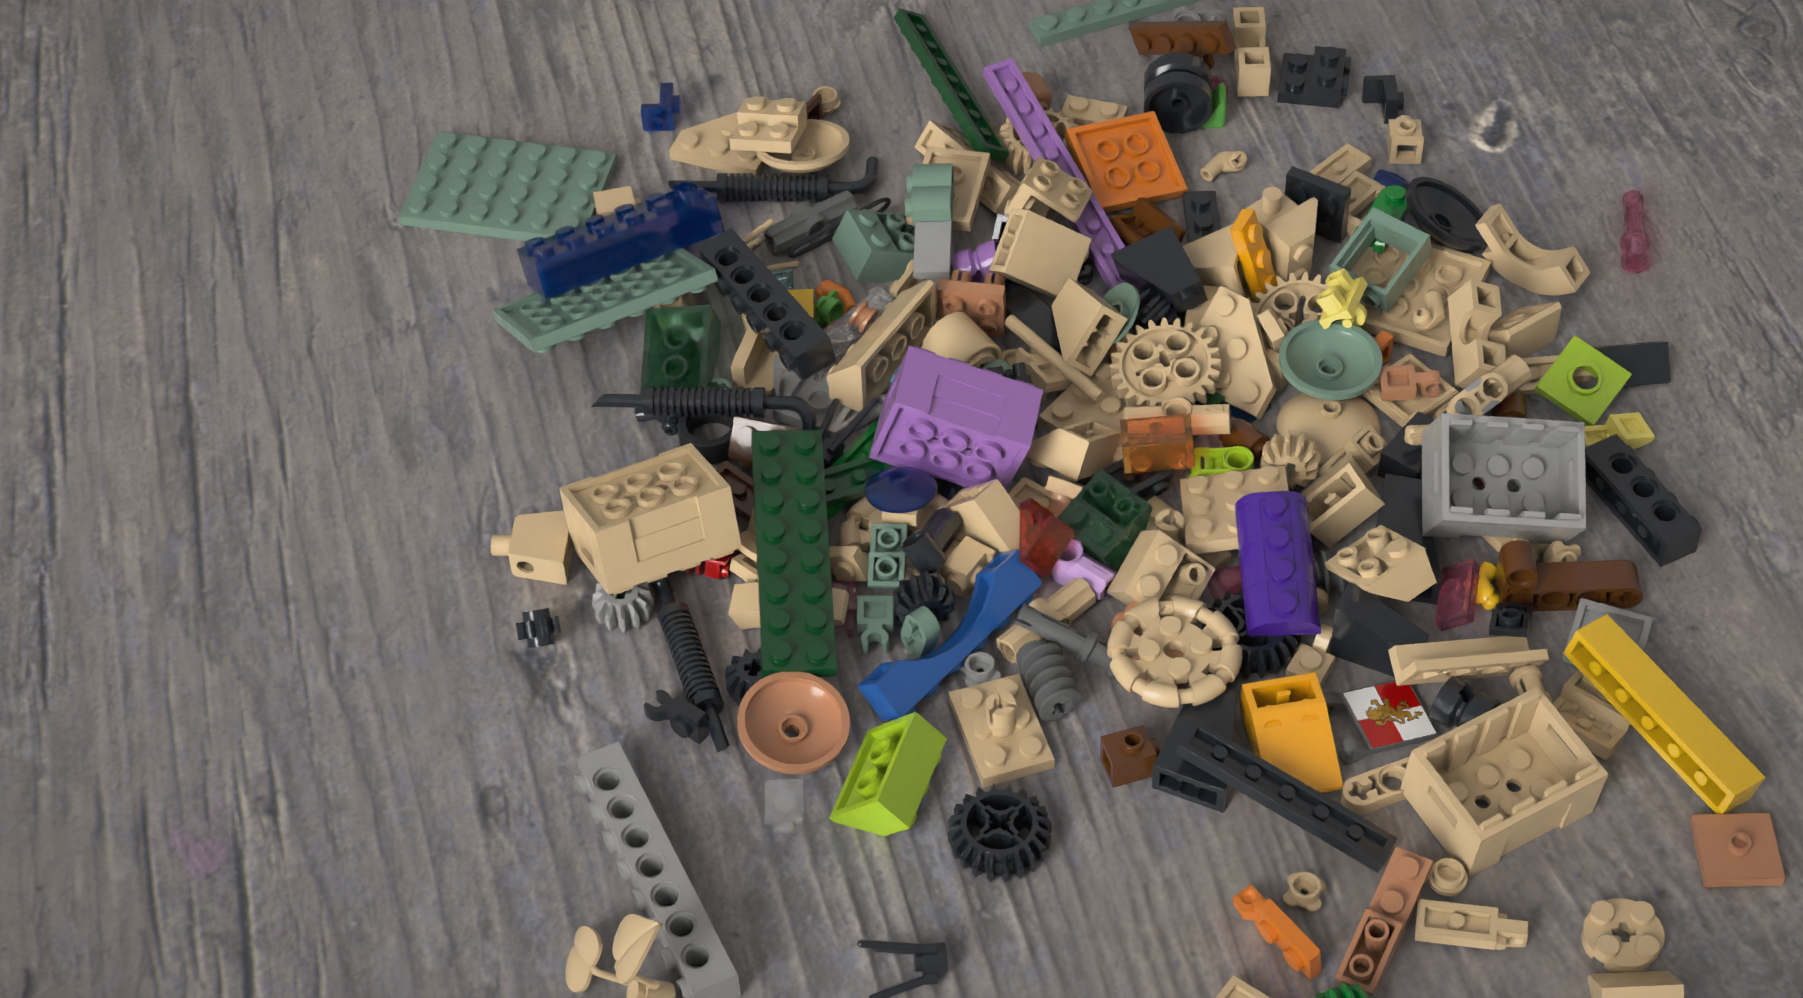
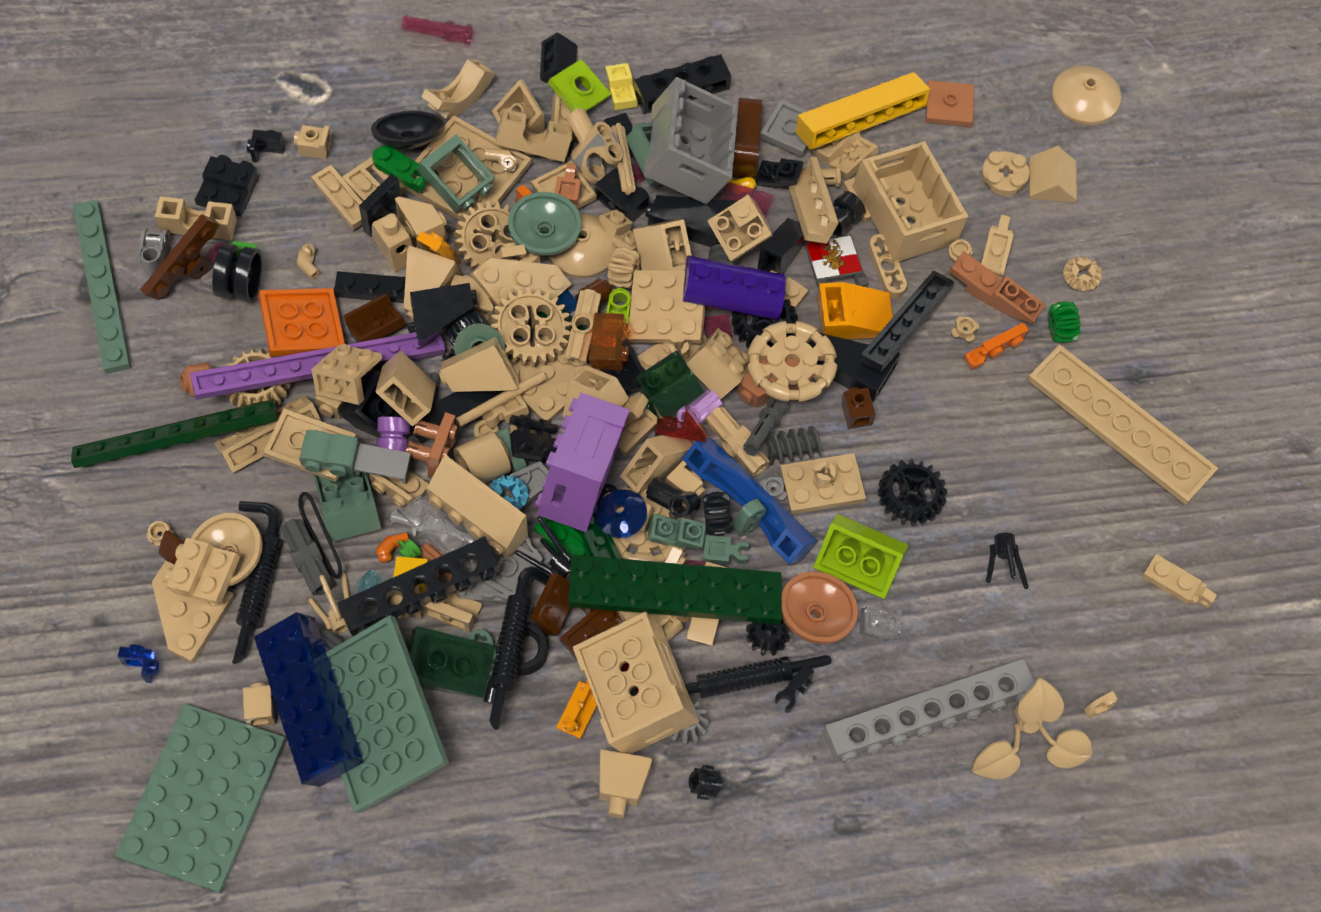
camera: 90 degrees left, 15 degrees up
(863, 316) = (448, 518): nougat bush -> none
(1091, 111) = (226, 340): tan plate -> none
(1342, 300) = (502, 201): light yellow hips -> none
(1390, 178) = (358, 156): clear blue tile -> none

